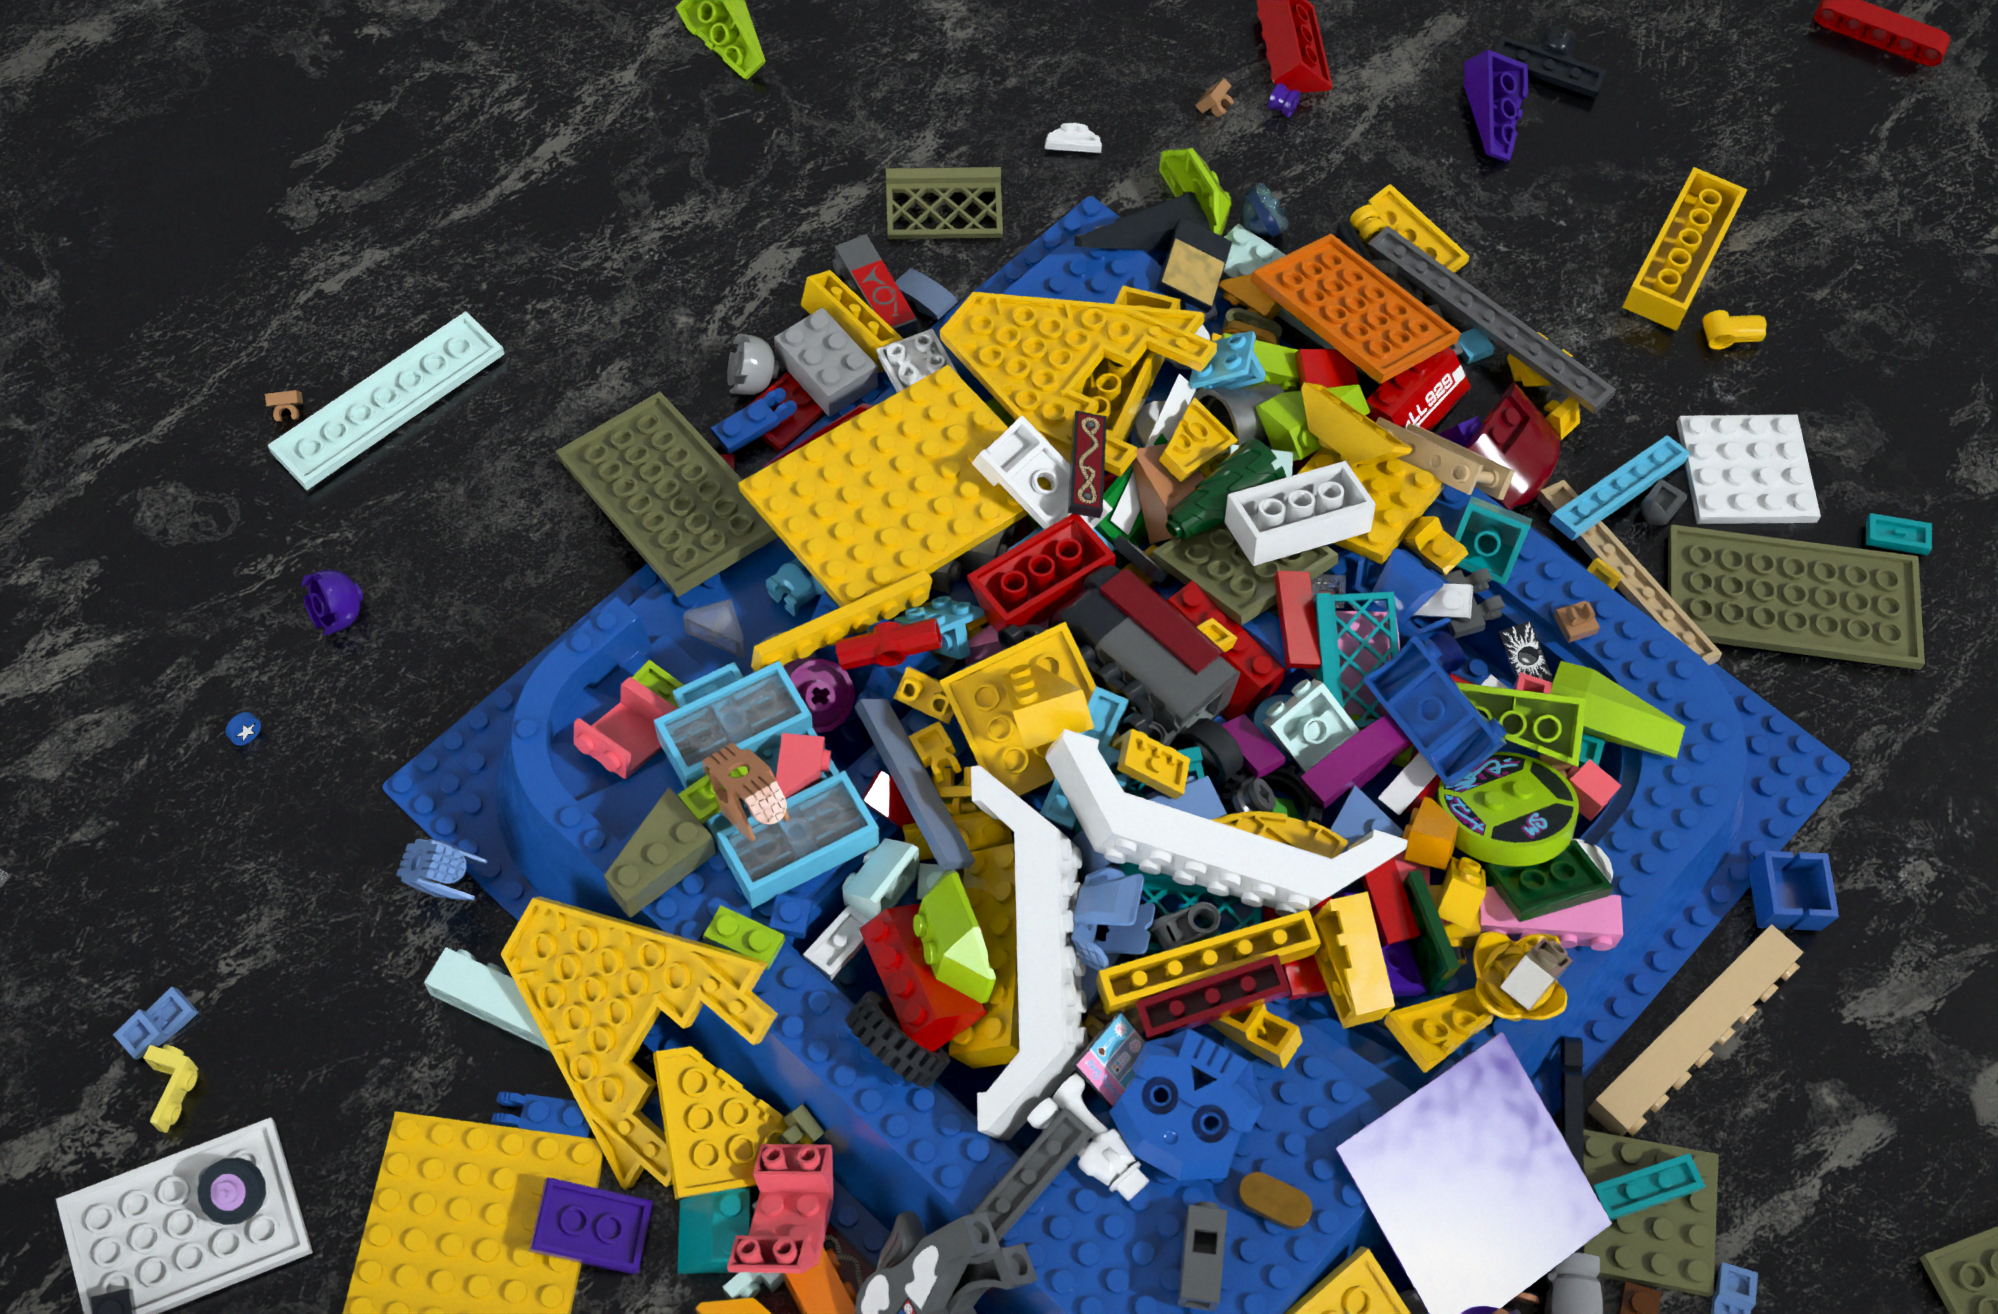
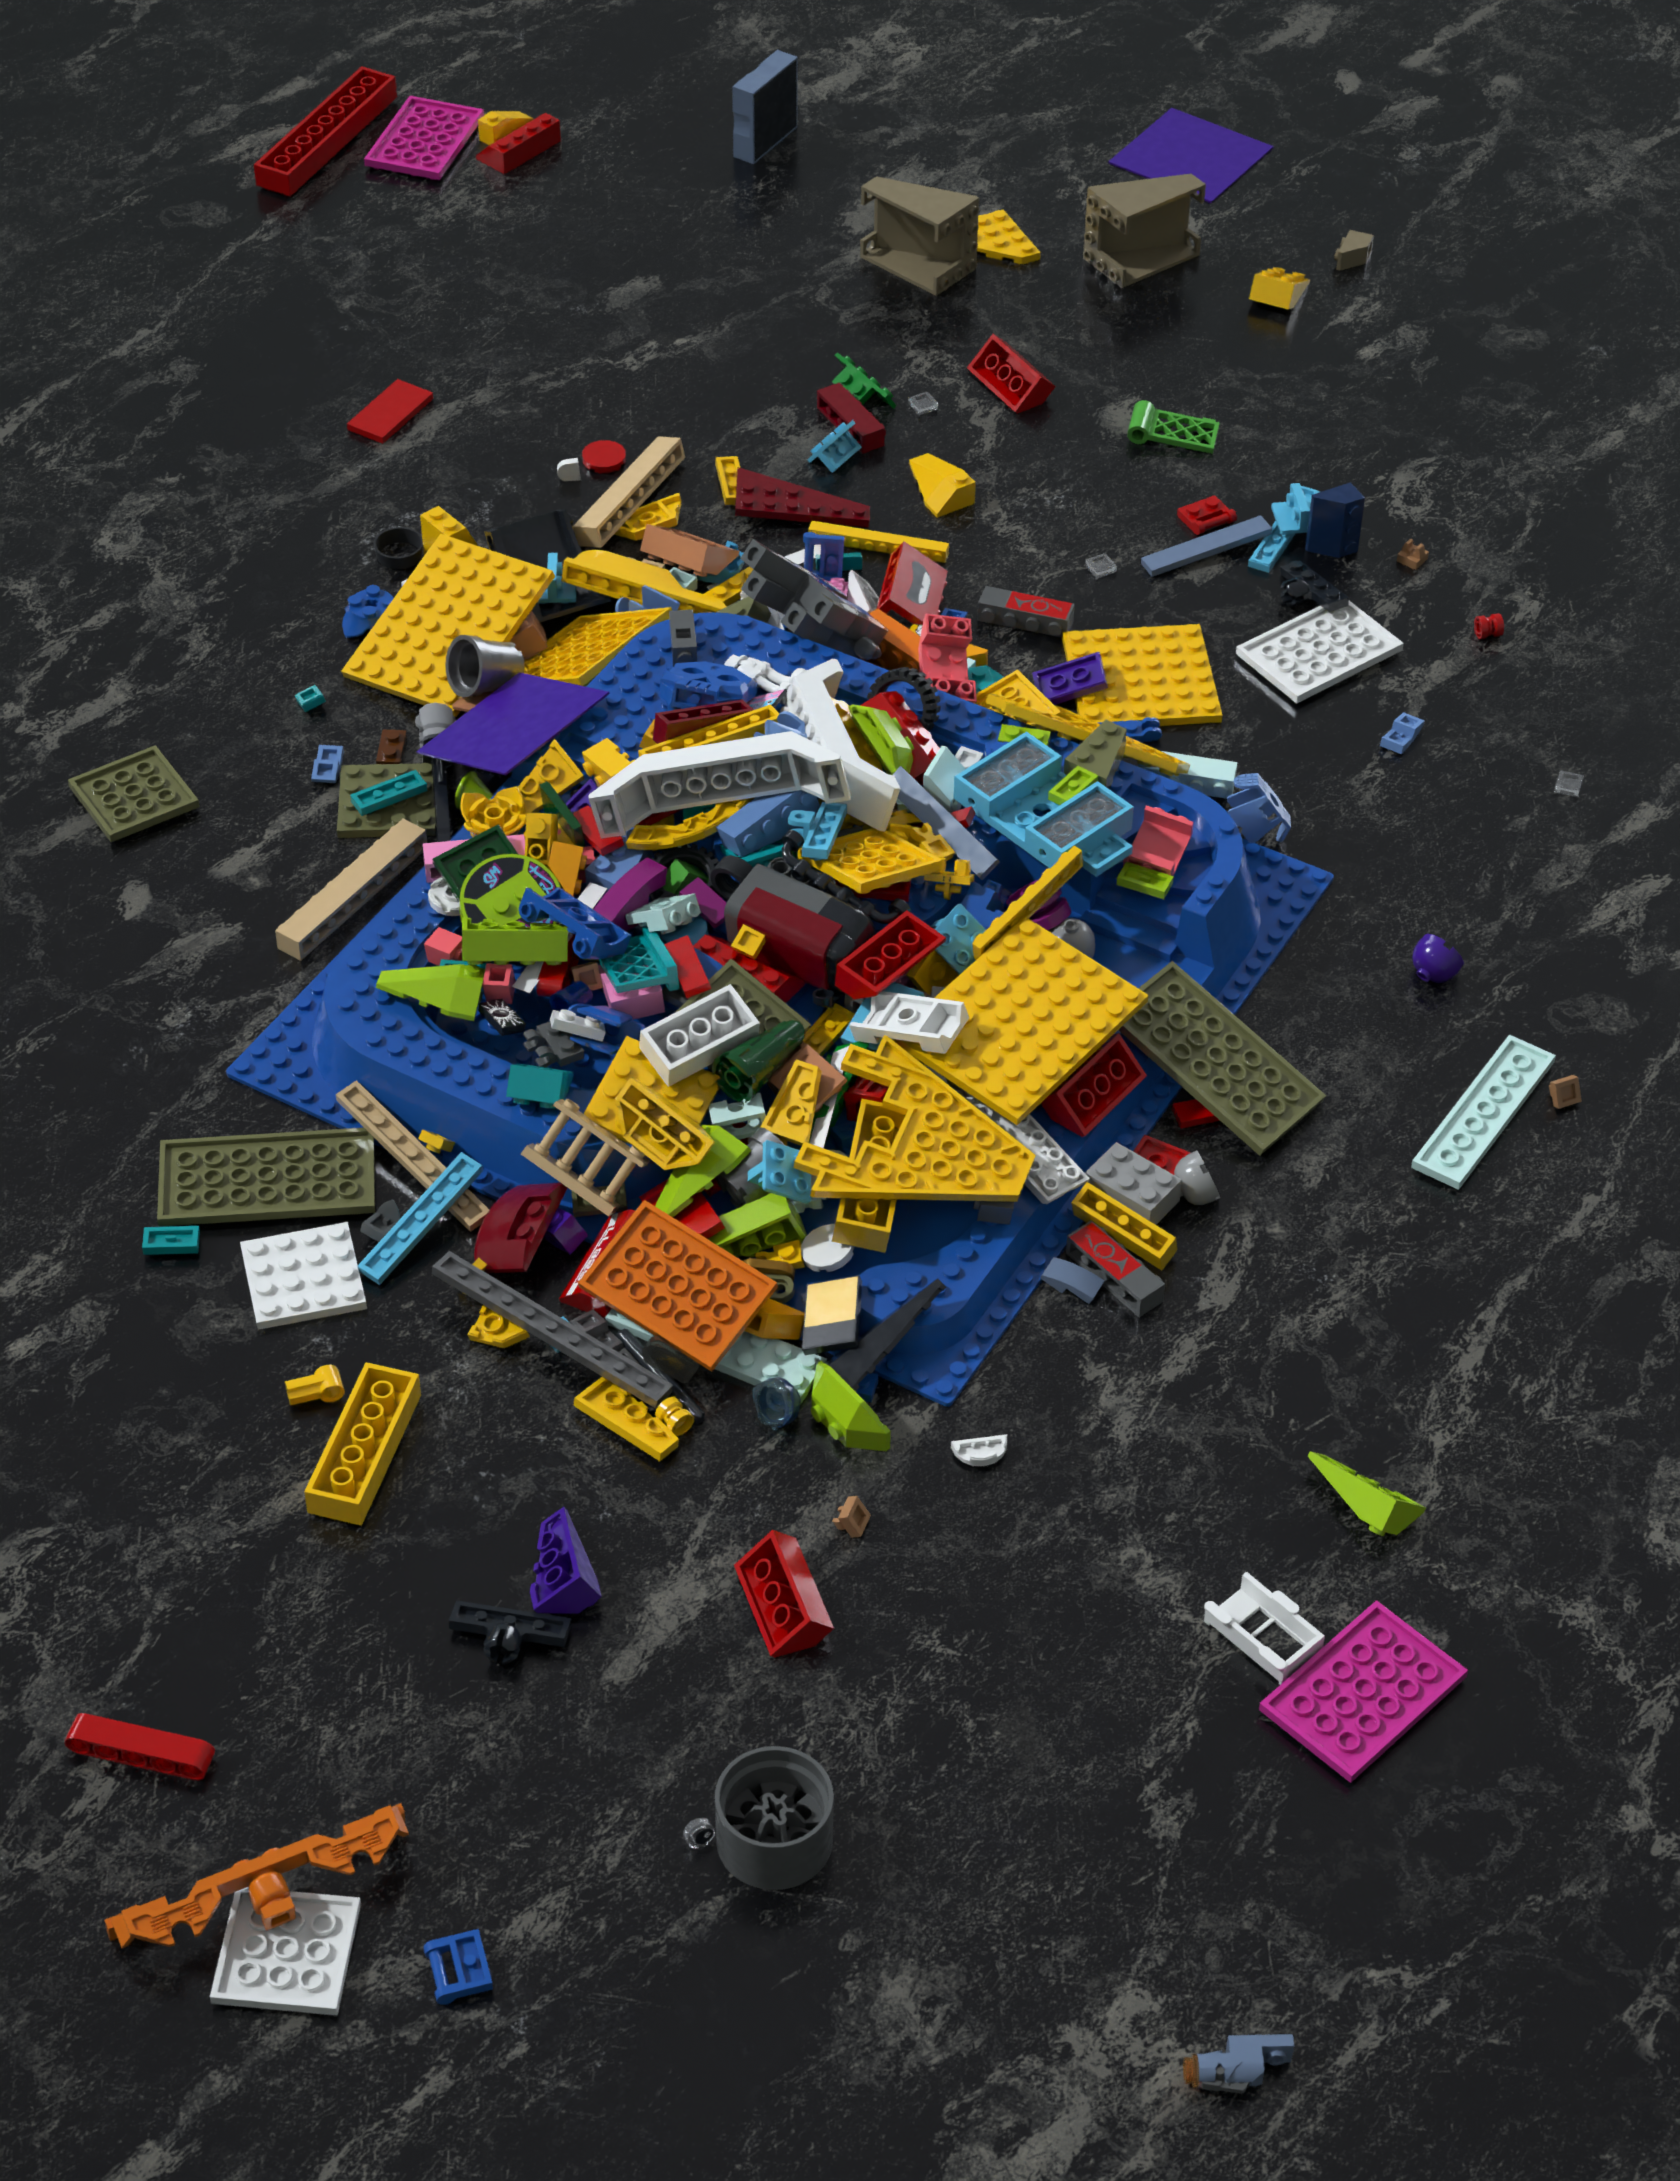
camera: 170 degrees right, 15 degrees down
(184, 1076) = (1373, 710): light yellow bracket -> none
(231, 1191) = (1296, 649): black wheel -> none
(243, 728) = (1451, 882): blue tile -> none
(717, 626) = (1129, 954): clear slope -> none
(753, 421) = (1176, 1141): blue hinge -> none
(756, 788) = (1049, 754): nougat piece -> none
(801, 762) = (1021, 804): coral slope -> none
(889, 644) = (987, 890): red piece -> none
(948, 181) = (1085, 1378): olive fence -> none
(1034, 1171) = (798, 654): dark grey tile -> none
(1045, 705) = (864, 813): yellow wedge -> none
(1087, 464) = (877, 1030): tile -> none
(1143, 561) = (821, 1031): black tile -> none
(1152, 763) = (775, 817): yellow bracket -> none
(1254, 798) = (697, 862): flat silver wheel -> none
(1275, 1200) = (641, 674): pearl gold tile -> none
(1284, 100) = (782, 1524): dark purple wheel -> none
(1434, 544) = (585, 1066): yellow slope -> none
(1537, 973) = (483, 801): slope -> none
(1577, 621) = (463, 1046): medium nougat tile -> none
(1797, 895) = (277, 976): blue piece -> none

